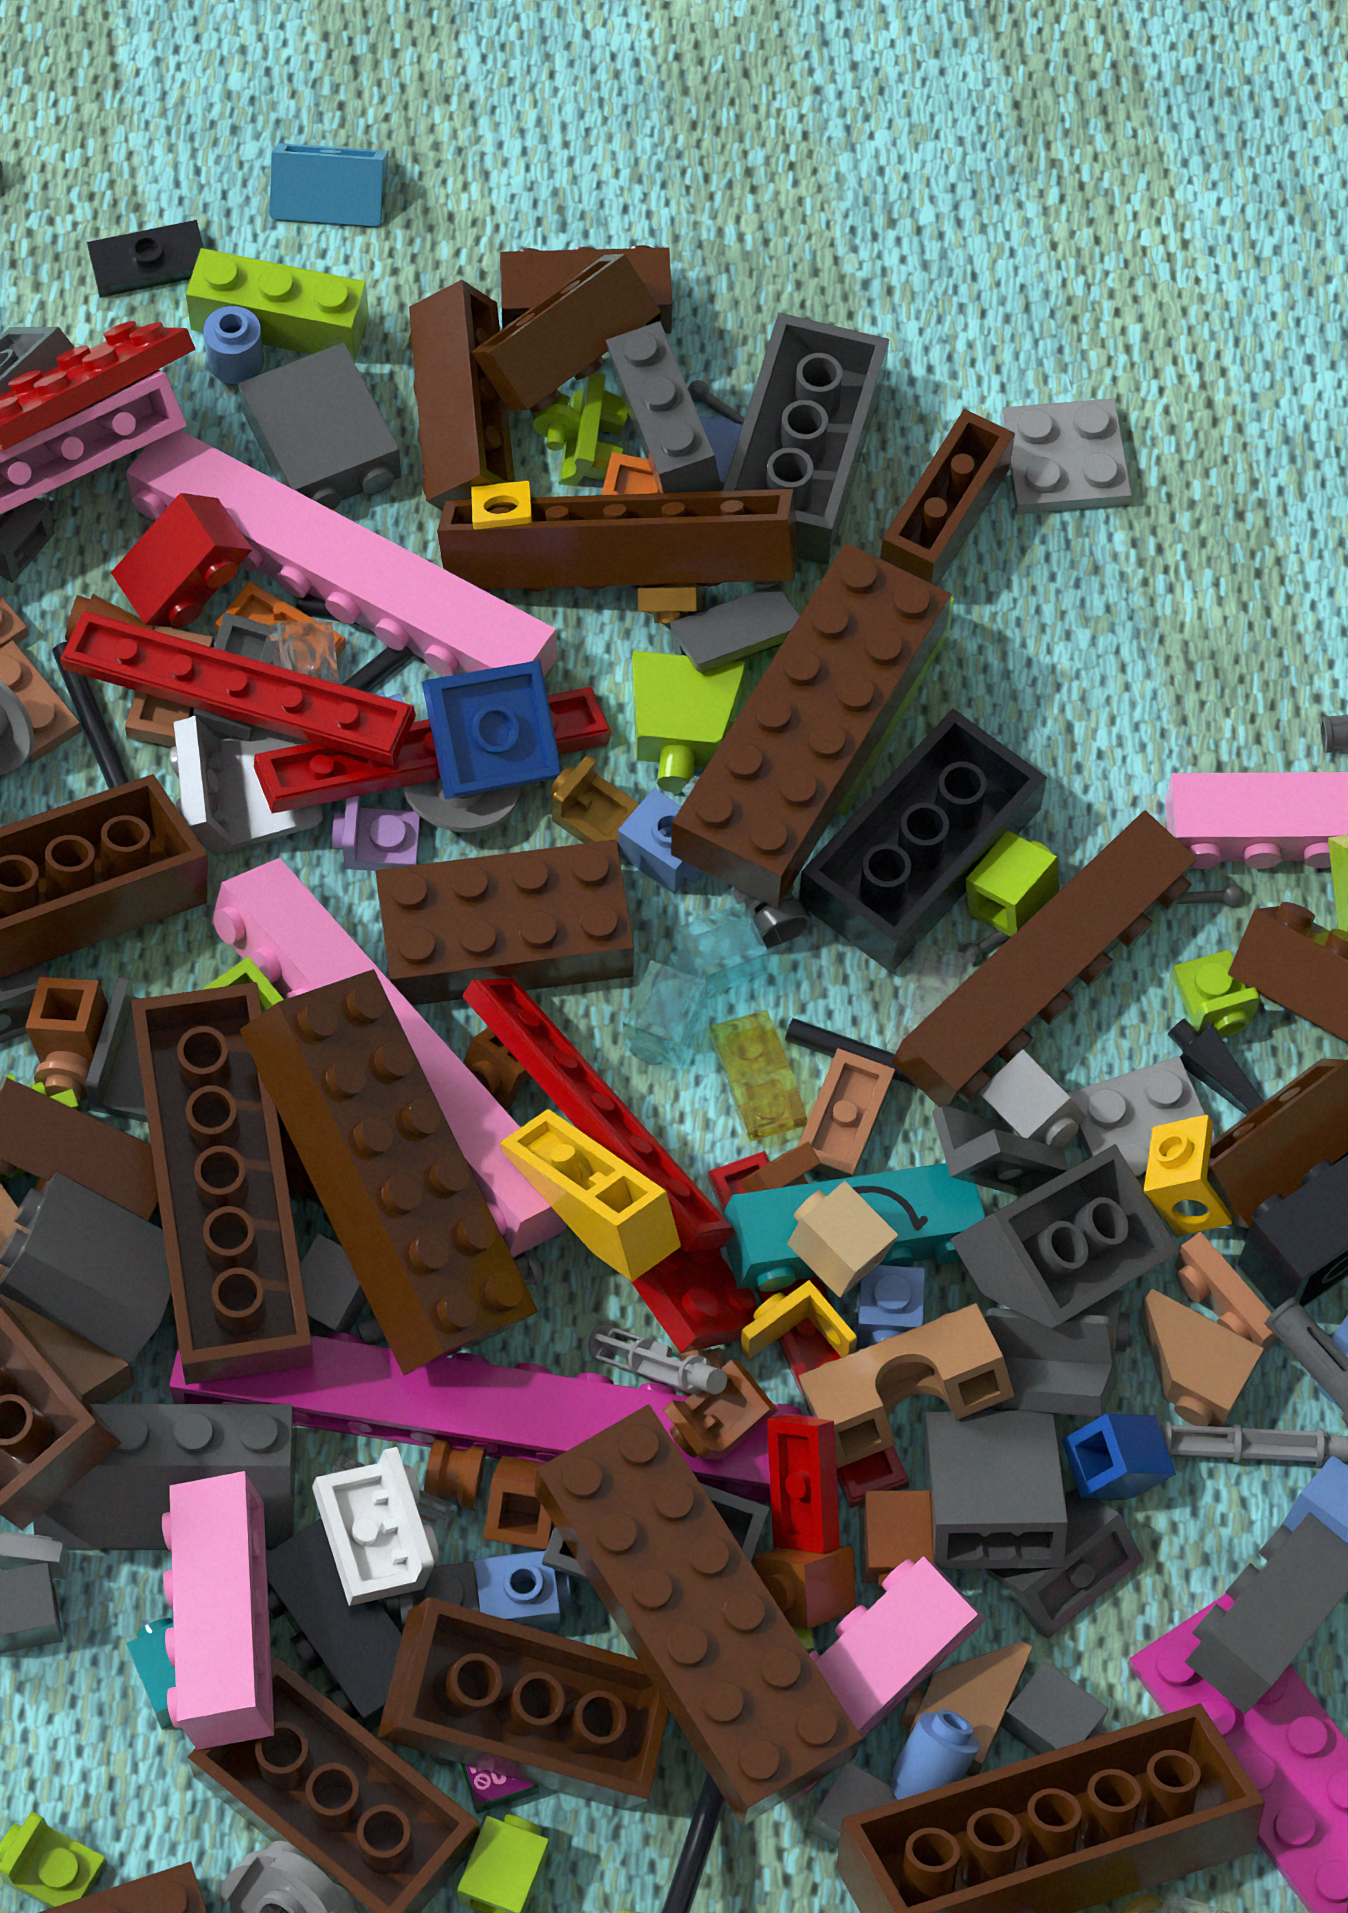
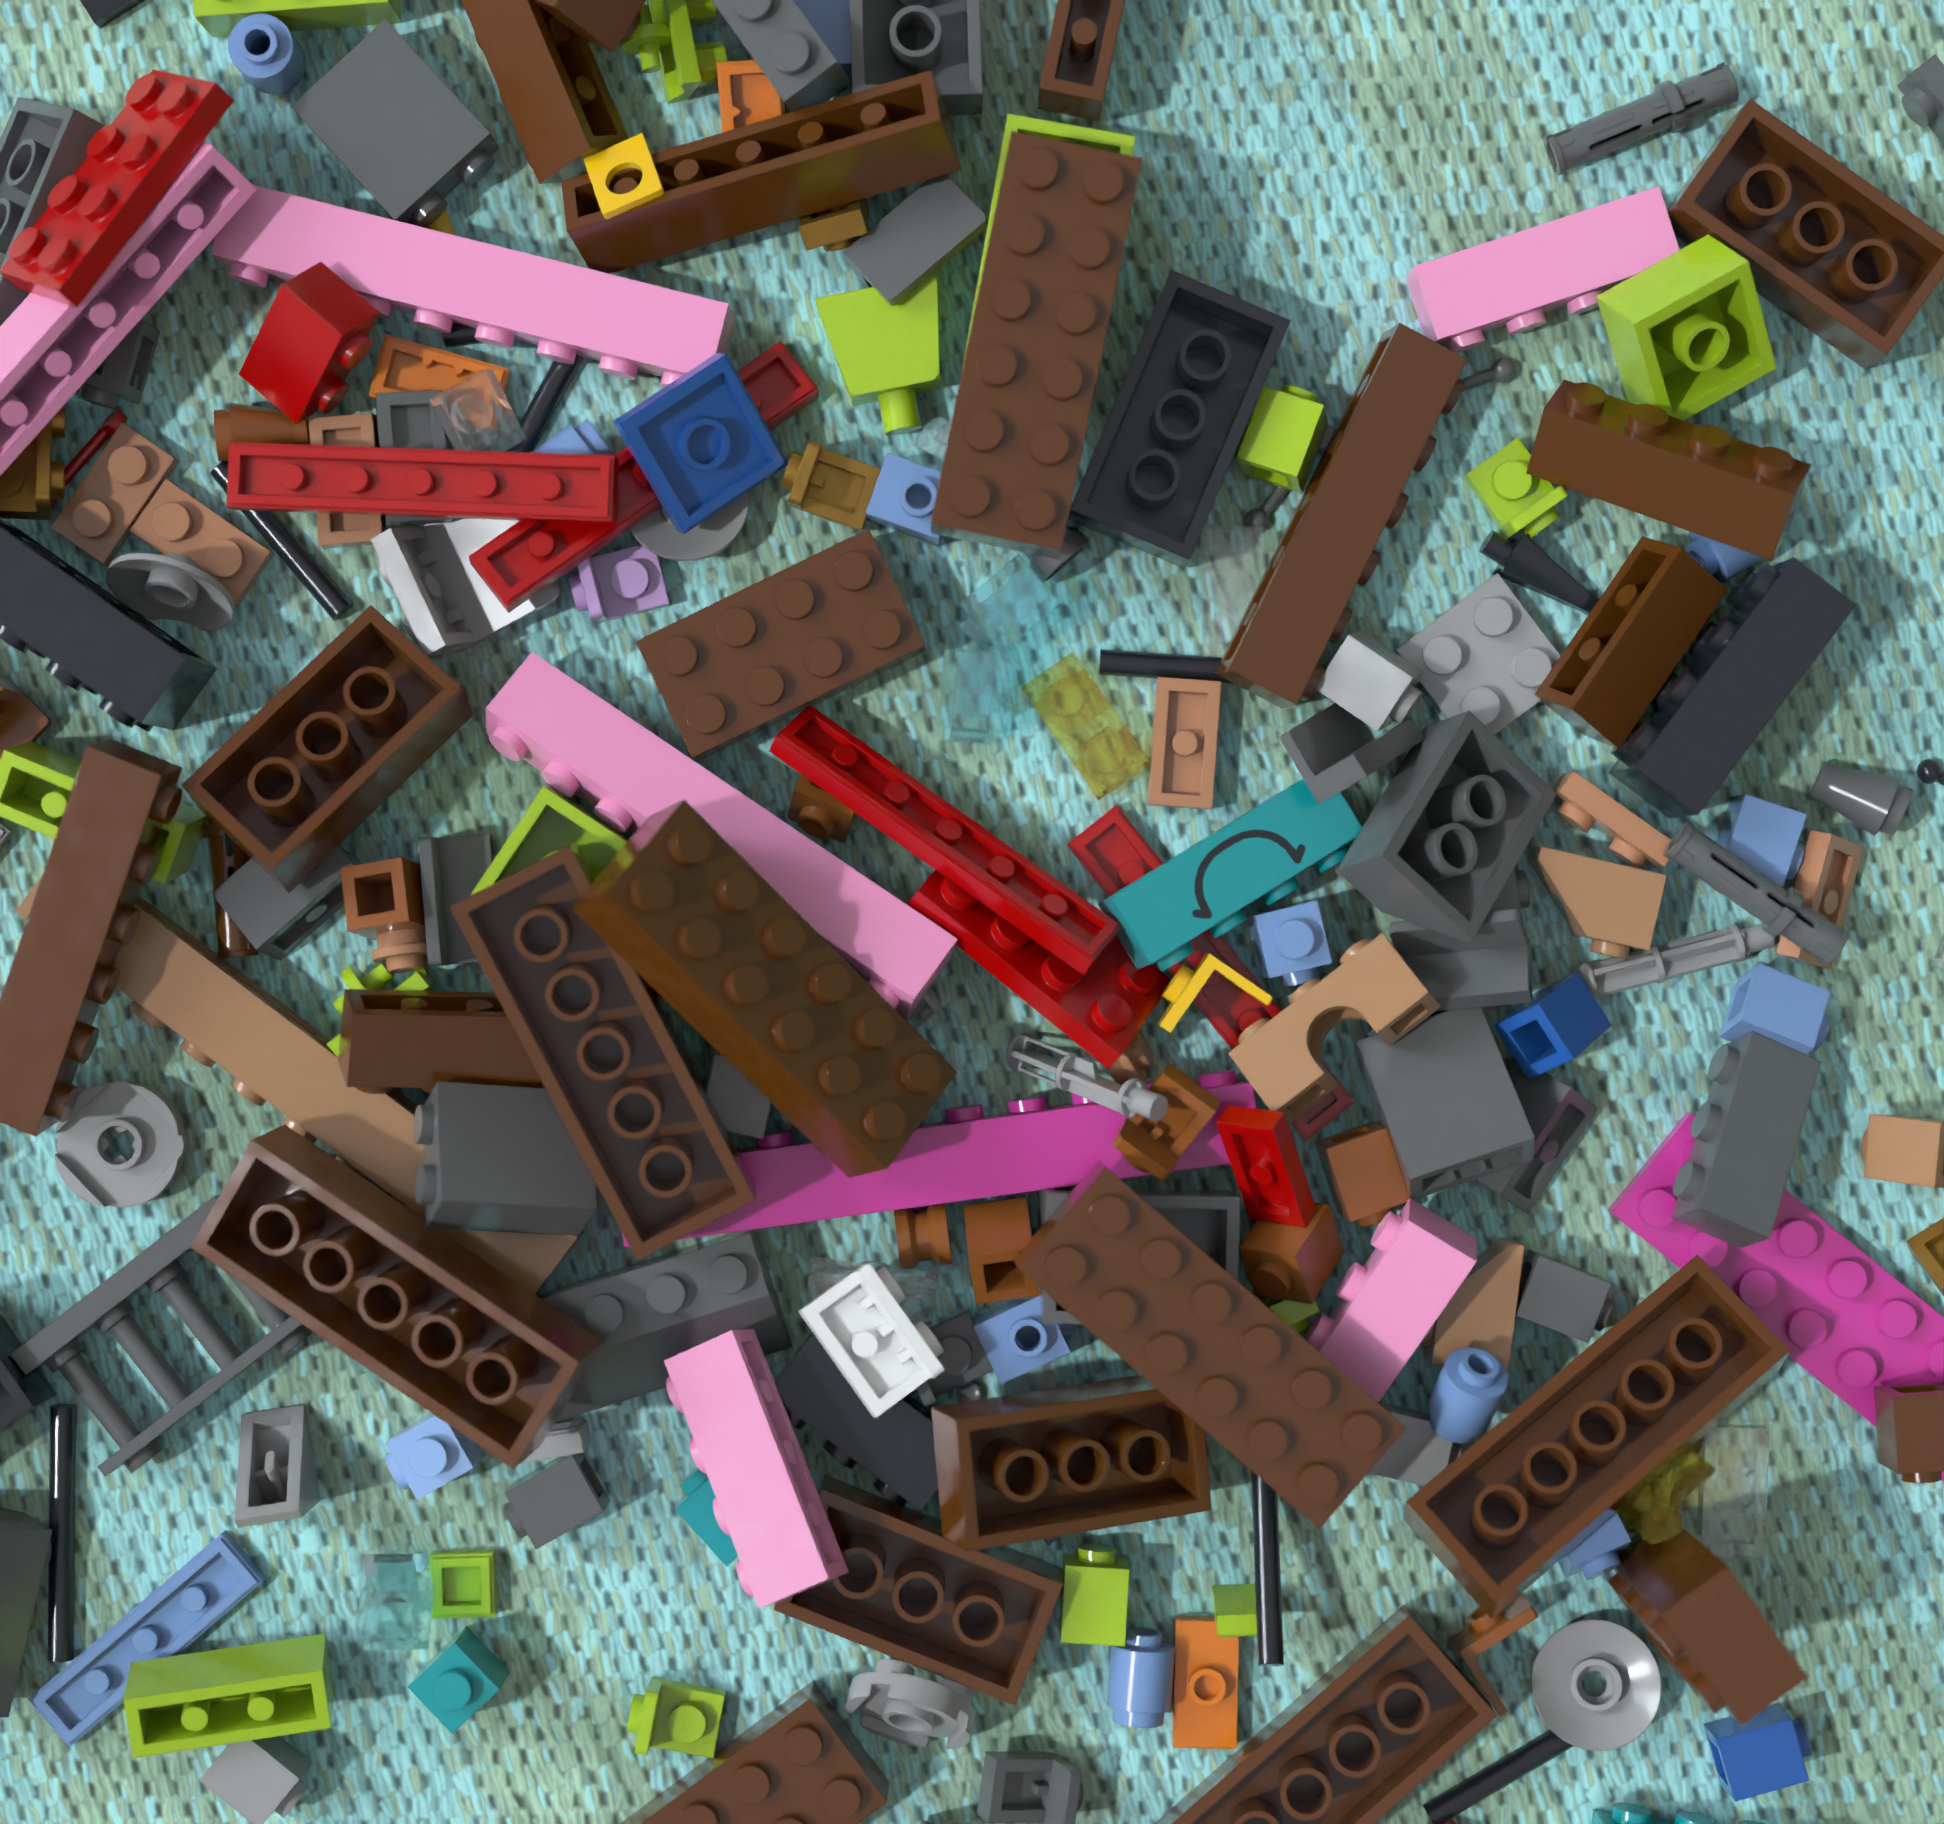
camera: 15 degrees left, 25 degrees up
(596, 1194) = (975, 948): yellow slope -> none
(783, 1171) = (1144, 838): dark orange plate -> none
(840, 1237) = (1233, 914): tan brick -> none
(1179, 1172) = (1538, 709): yellow bracket -> none

